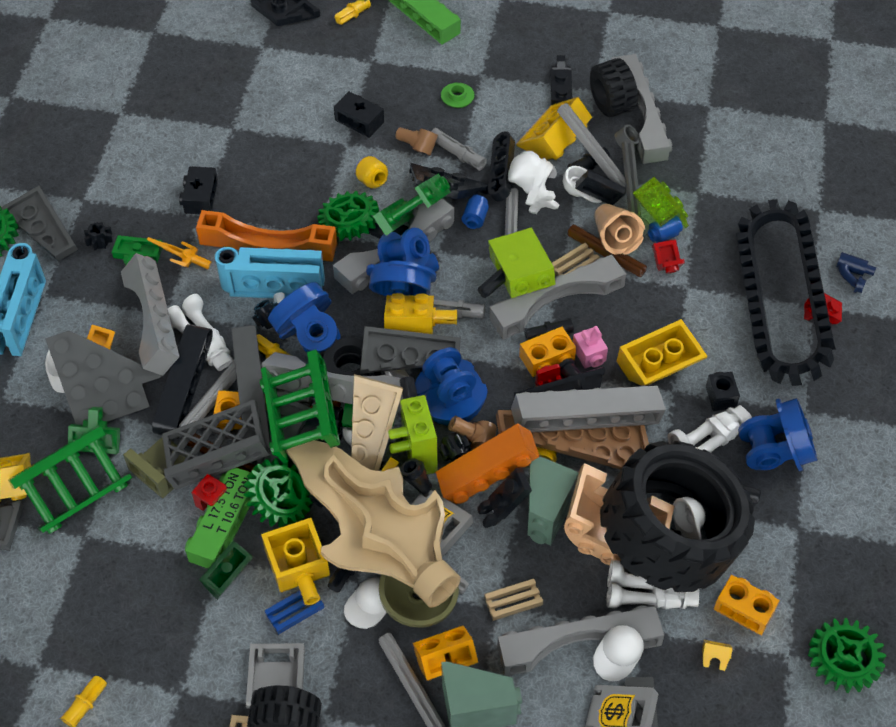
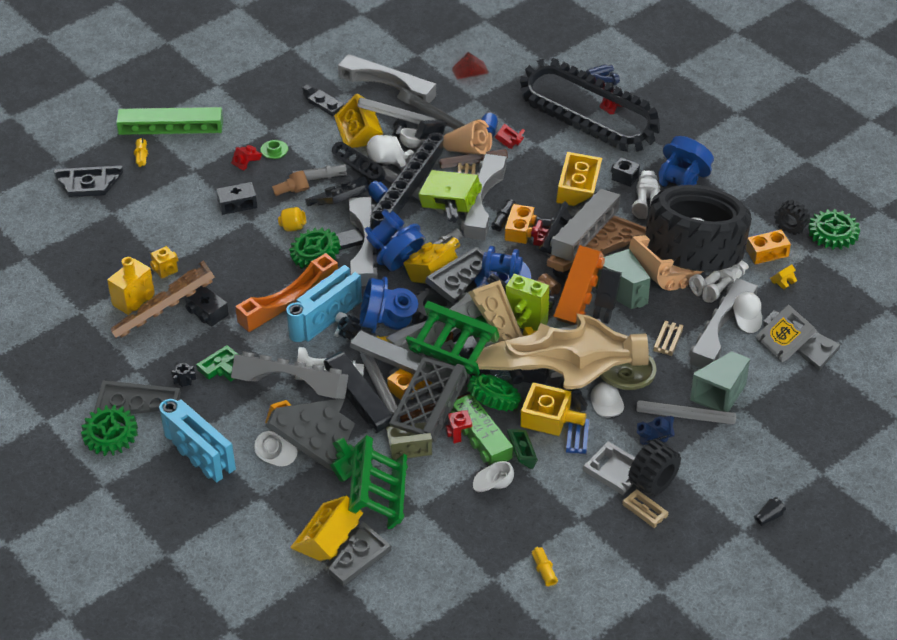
camera: 50 degrees left, 10 degrees down
(165, 121) = (131, 285): none -> yellow brick
(168, 573) = (494, 476): none -> white cap
(187, 255) = (254, 341): light orange piece -> none
(188, 159) = (181, 287): none -> medium nougat wing
(224, 123) = (164, 262): none -> yellow brick
(352, 679) = (659, 429): none -> dark blue hips
(401, 211) = (359, 203): green fence -> none
(416, 475) = (550, 319): black cone -> none
(423, 80) = (245, 154): none -> red bracket
(450, 646) = (677, 381): light orange brick -> none
(508, 219) = (409, 178): none -> black beam
(590, 347) = (539, 201): bright pink brick -> none
(613, 87) = (362, 67): black tyre -> none
(659, 203) = (474, 109): clear neon green bracket -> none
(736, 156) = (469, 66): none -> clear red slope
(813, 598) = (795, 210): none -> black tyre

